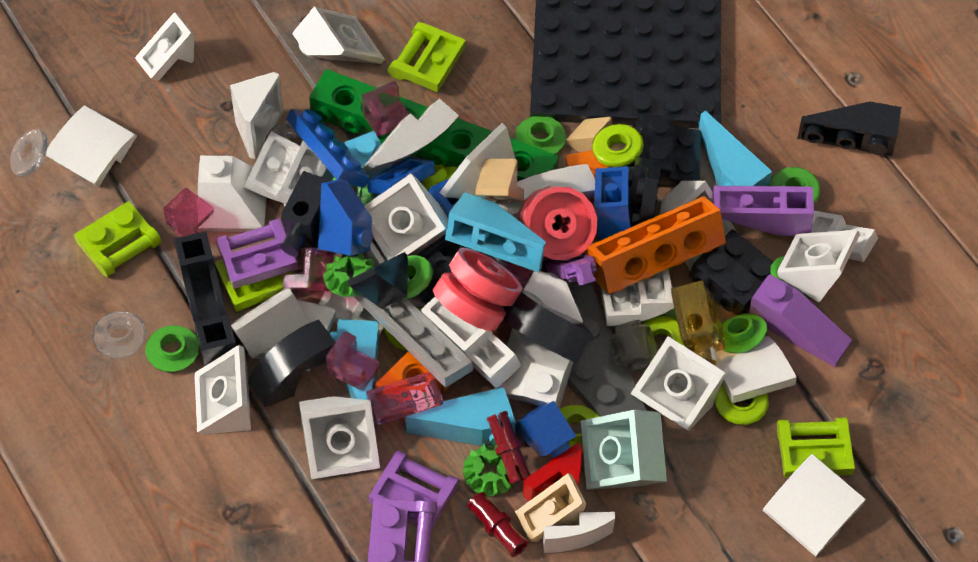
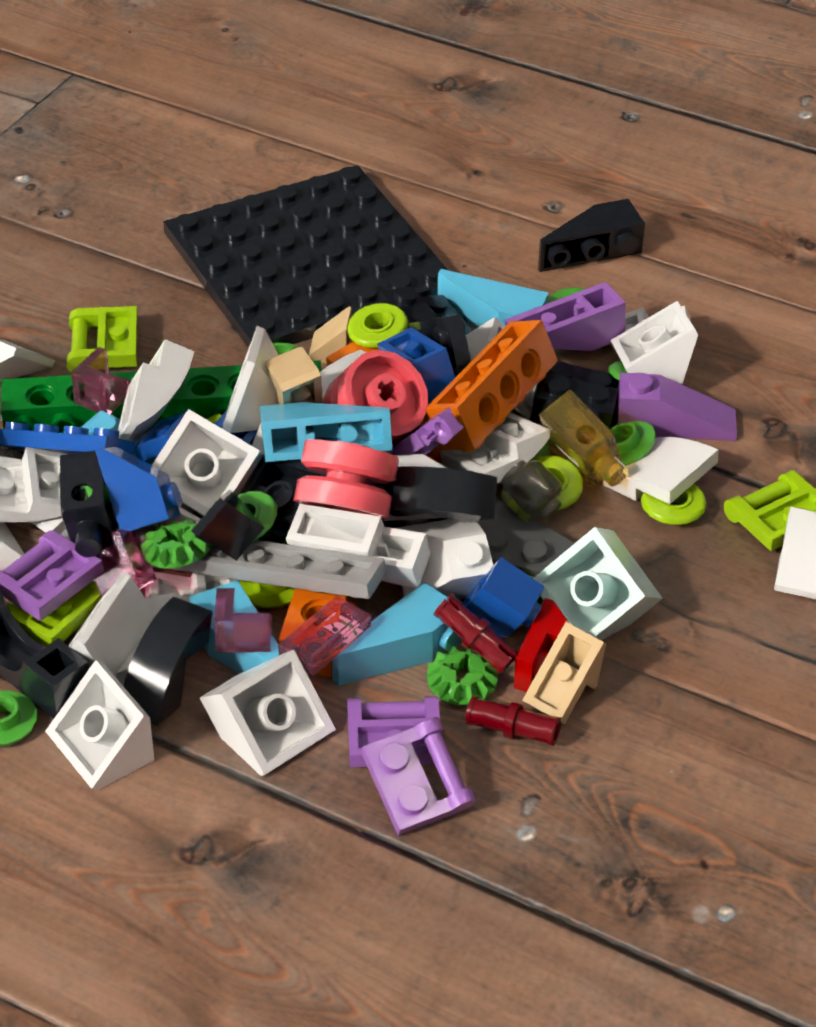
camera: 30 degrees left, 15 degrees down
(590, 529) = (601, 696): white slope -> none
(679, 384) = (606, 498): white slope -> none

